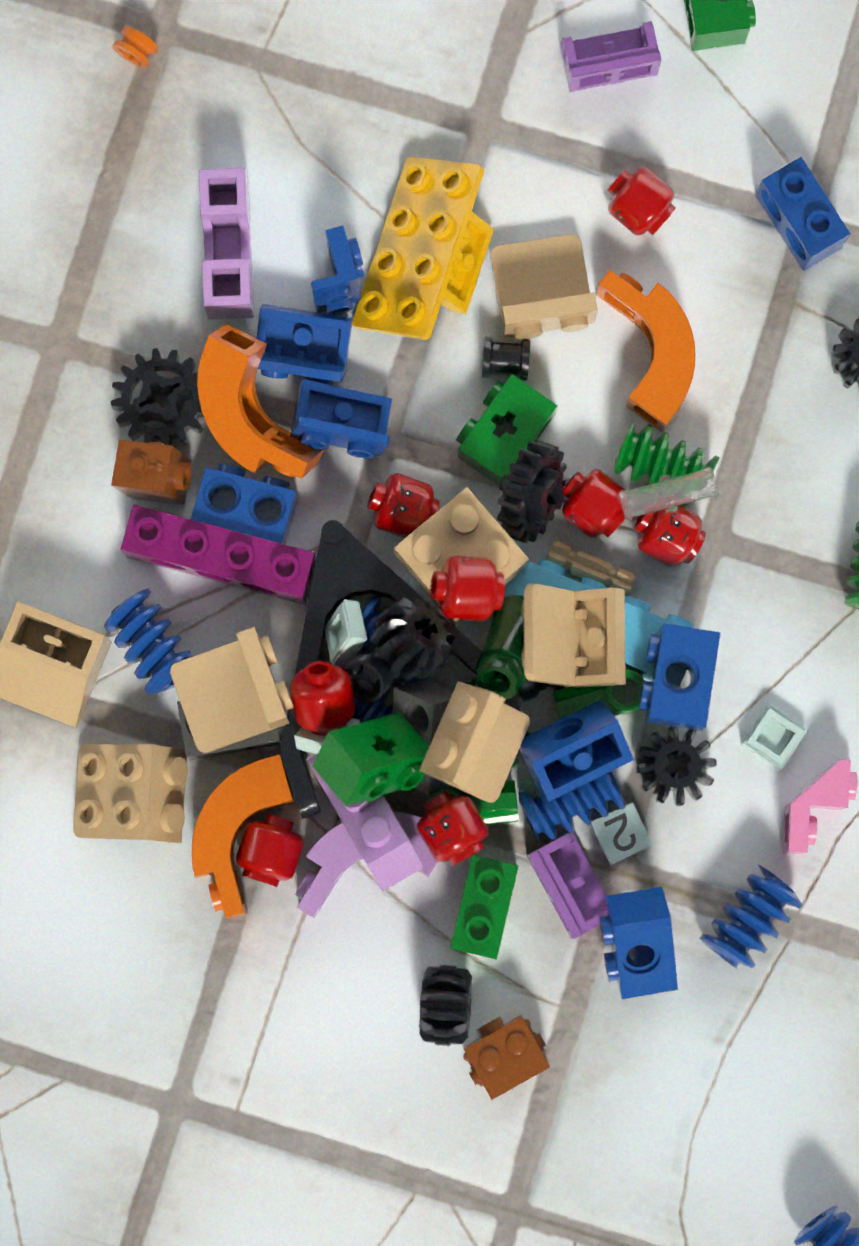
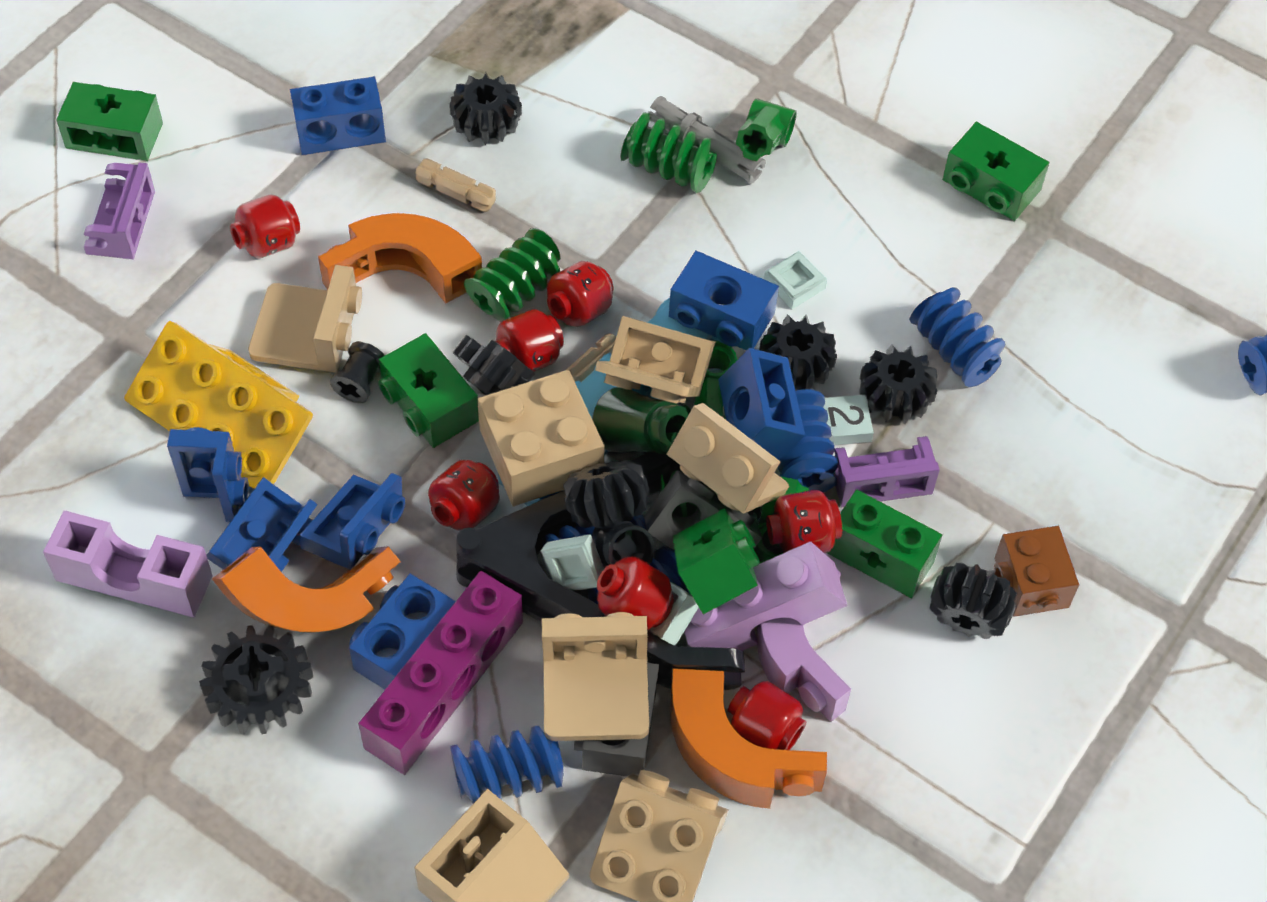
camera: 75 degrees left, 25 degrees down
(152, 472) = (330, 702): dark orange head -> none
(468, 588) = (581, 407): red head -> none
(640, 943) = (959, 415): blue brick -> none
(668, 493) = (548, 264): clear pin -> none
(685, 861) = (898, 384): none -> black gear
(767, 362) = (455, 185): none -> tan axle
(828, 791) = (872, 276): bright pink slope -> none

